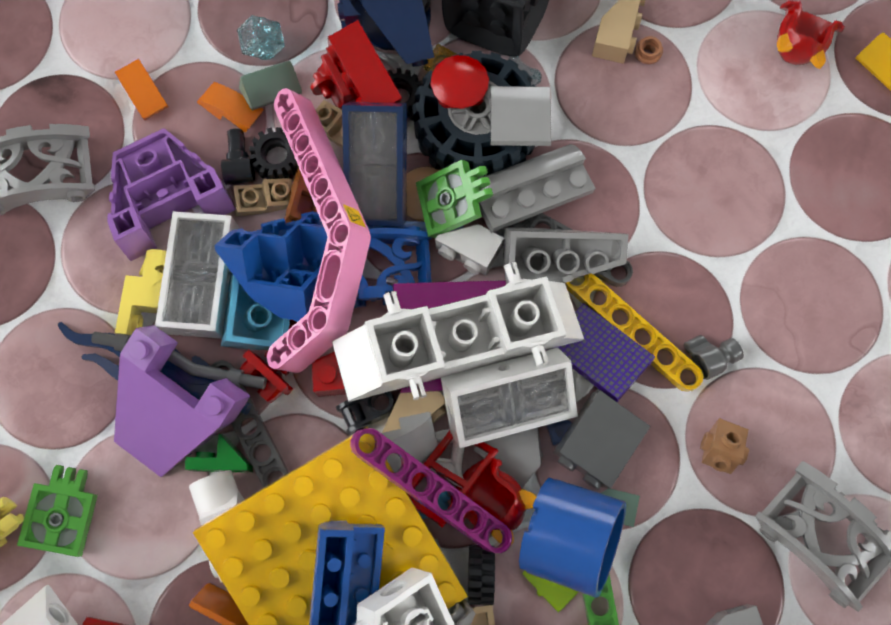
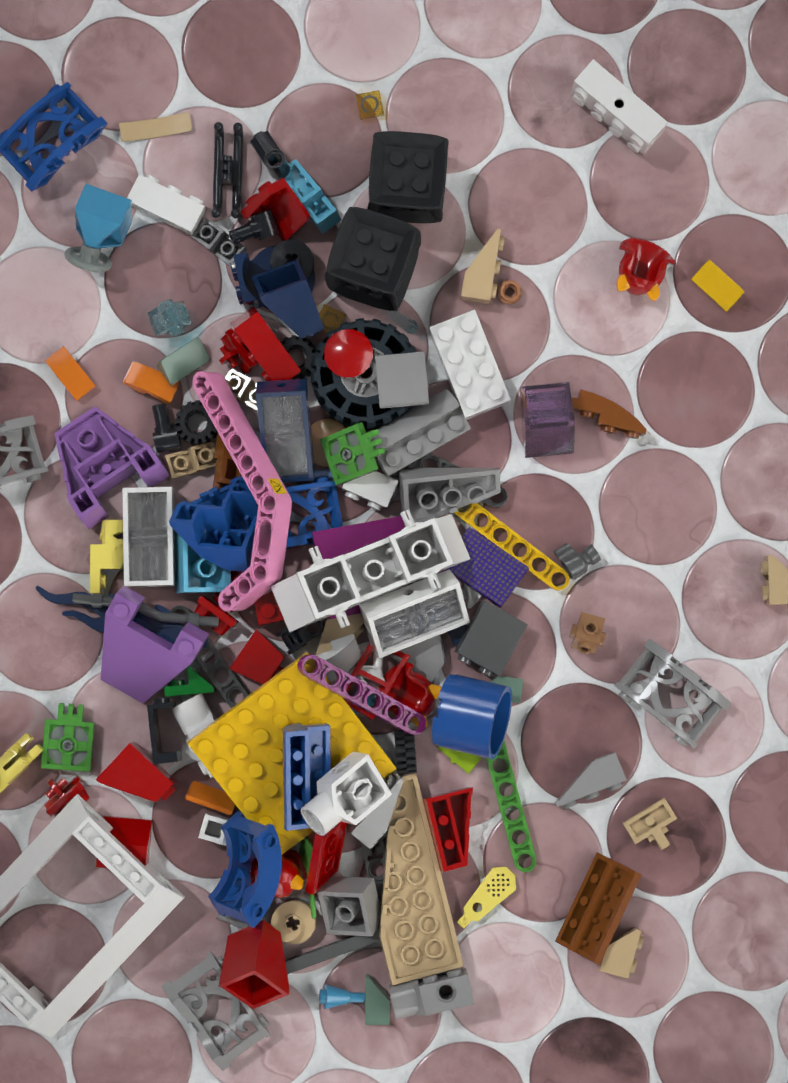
camera: 10 degrees left, 10 degrees up
(30, 574) = (62, 793): none -> red hips
(133, 567) = (136, 774): none -> red slope
(164, 515) = (158, 756): none -> black panel
(307, 434) = (258, 659): none -> red torso
(599, 119) = (469, 365): none -> white brick
(690, 184) = (547, 419): none -> clear purple slope
(759, 189) = (610, 414): none -> dark orange slope

